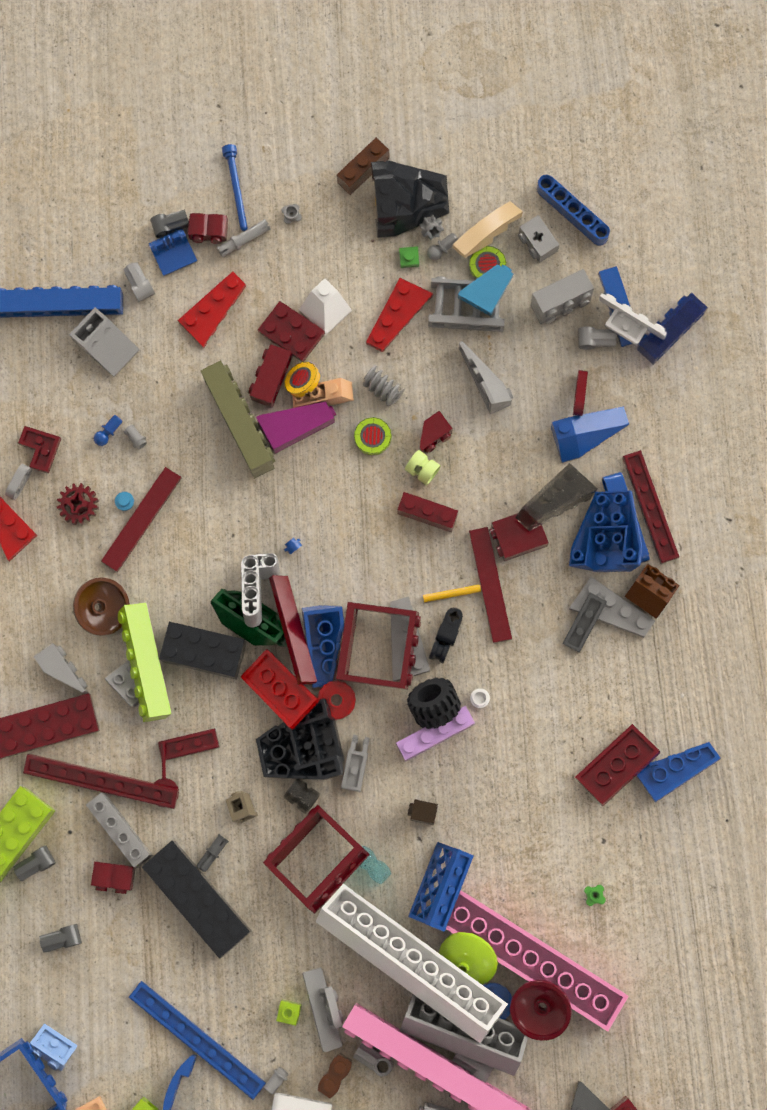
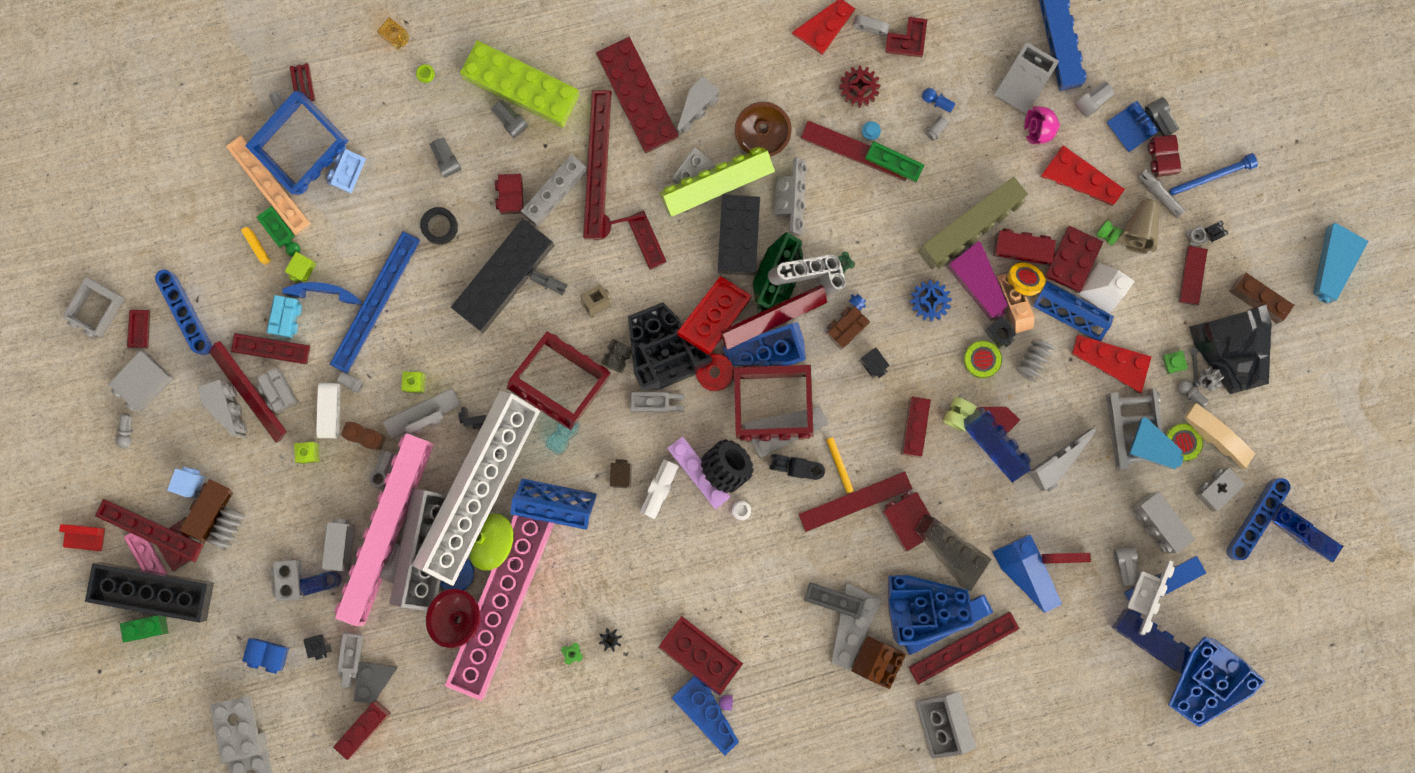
camera: 75 degrees right, 5 degrees up
(116, 961) = (439, 211): none -> black tyre
(153, 336) = (1041, 125): none -> dark pink cylinder
(160, 483) = (894, 161): none -> green tile
(173, 592) = (790, 196): none -> light grey bracket
(245, 550) = (849, 264): none -> clear green plate
(272, 293) = (1105, 230): none -> bright green wheel
(274, 261) = (1142, 228): none -> dark tan cone
(290, 194) = (1216, 231): none -> black wheel
(298, 473) = (930, 292): none -> blue gear
(317, 560) = (847, 327): none -> reddish brown brick
(328, 349) = (1078, 307): none -> blue fence
(329, 224) = (1193, 275): none -> dark red tile
(341, 91) = (1338, 259): none -> dark azure slope
(342, 954) = (475, 422): none -> black bracket
(347, 421) = (992, 330): none -> black brick
(357, 540) = (875, 363): none -> black brick
(402, 238) = (1194, 351): none -> dark grey hinge
(444, 776) = (659, 489): none -> white piece
(459, 436) = (997, 444): none -> clear blue brick
(590, 848) = (612, 634): none -> black gear
(593, 169) = (1305, 533): none -> clear blue slope
(668, 748) = (726, 702): none -> medium lavender hinge
(721, 280) = (1213, 682): none -> blue wedge
(723, 537) = (945, 725): none -> light grey slope

